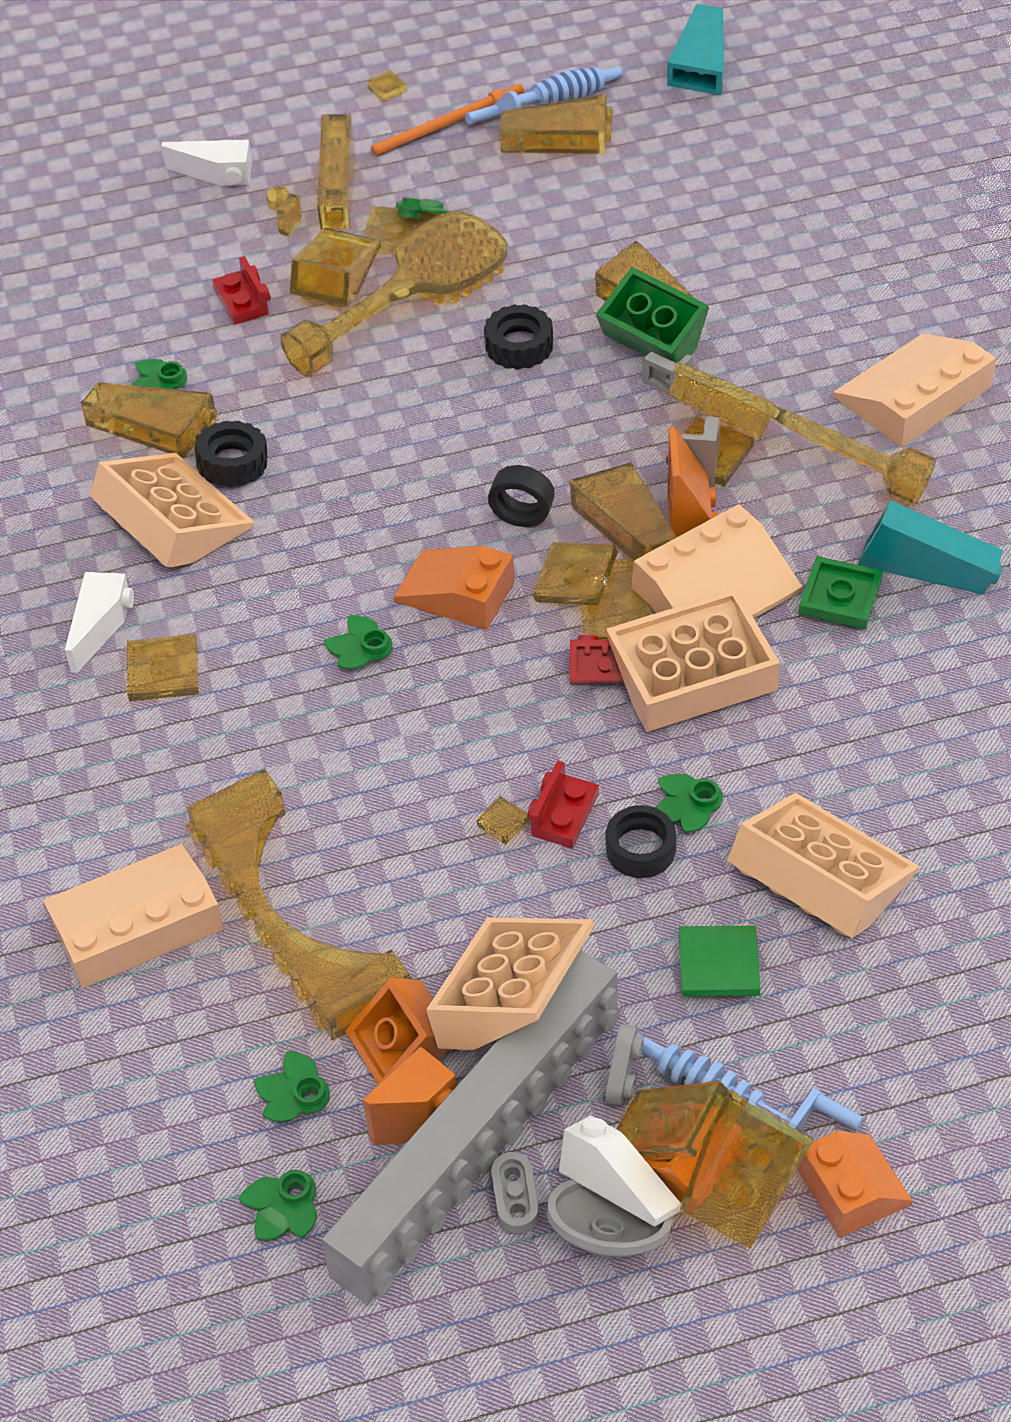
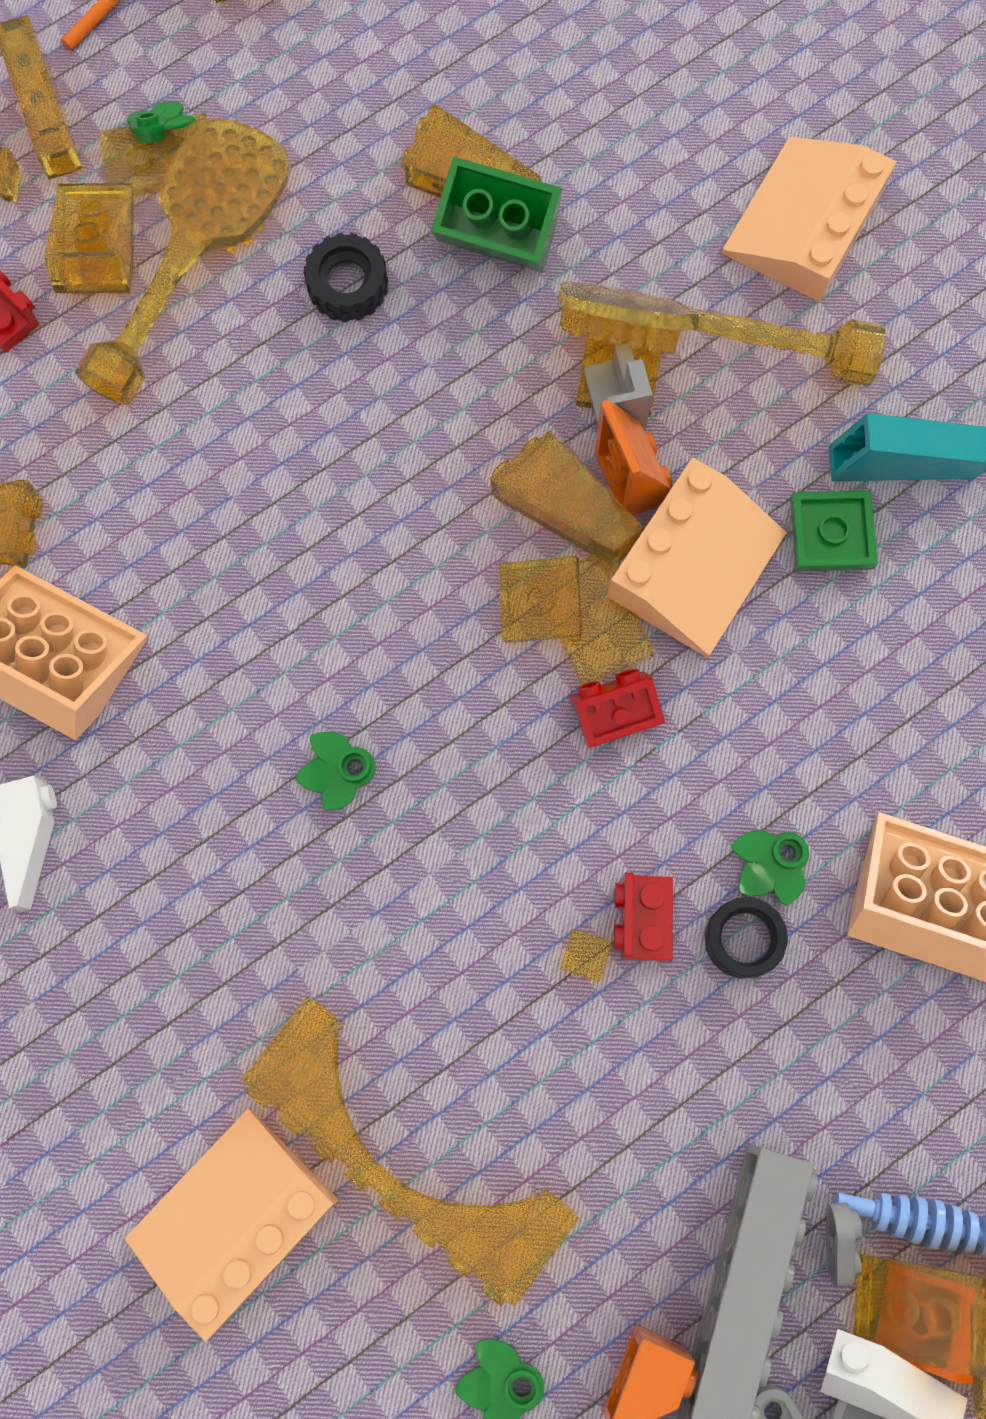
camera: 20 degrees left, 25 degrees up
(162, 667) = (126, 874): clear yellow tile -> none
(231, 470) = (74, 523): black tyre -> none
(394, 1027) = (592, 1280): orange slope -> none
(459, 583) = (411, 653): orange slope -> none
(504, 979) = (702, 1207): light nougat slope -> none
(515, 511) = (443, 516): black tyre -> none
(659, 370) = (533, 284): light grey bracket -> none
(693, 659) = (716, 682): light nougat slope -> none
(719, 961) = (883, 1063): green slope -> none

